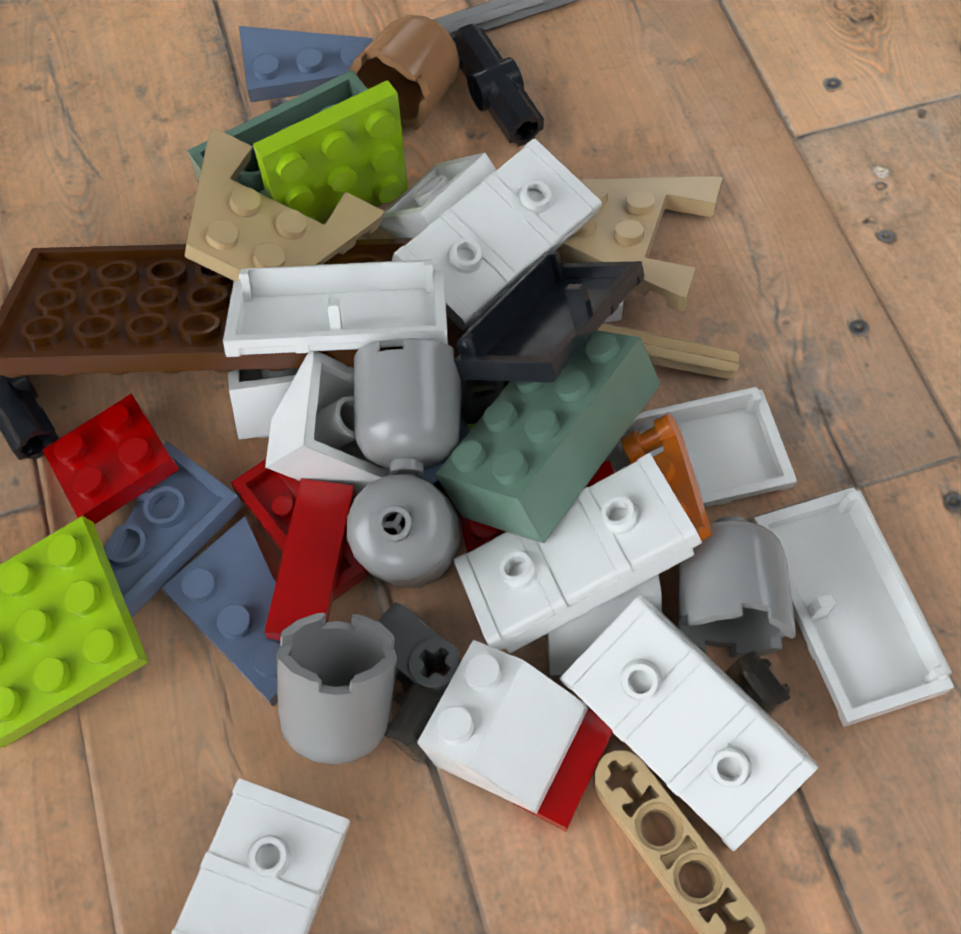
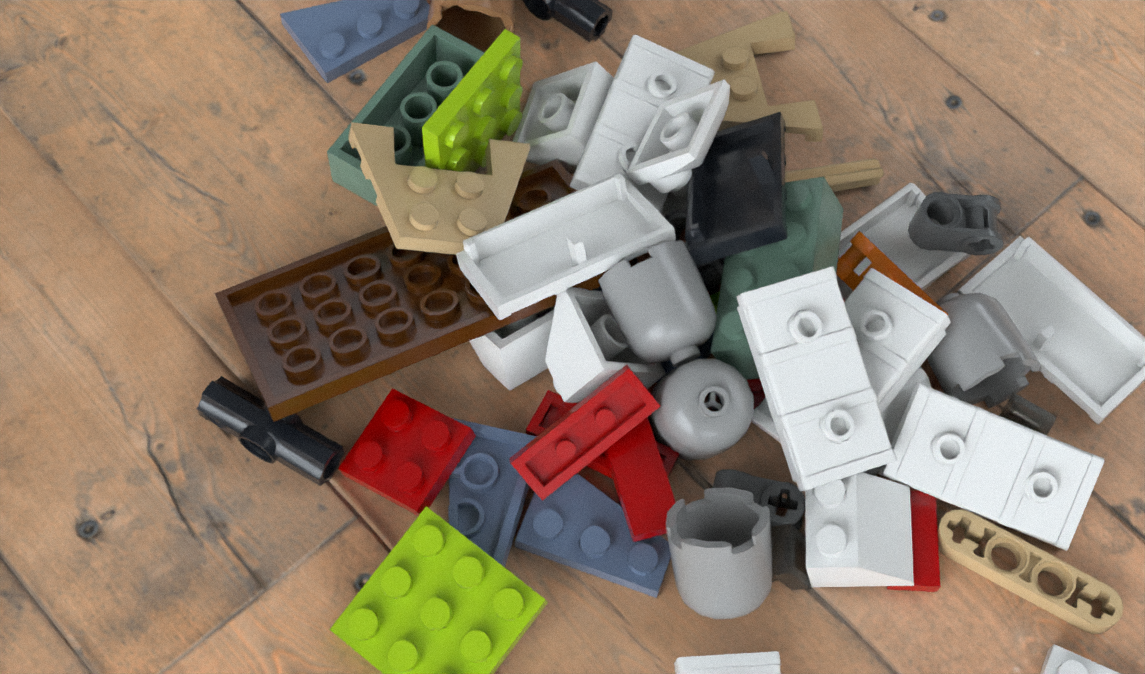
camera: 30 degrees left, 0 degrees up
(268, 505) = (584, 432): none -> red plate
(512, 247) = (679, 137): none -> white slope
(517, 543) = (814, 379): none -> white container
(787, 447) = (965, 224): none -> dark grey piece

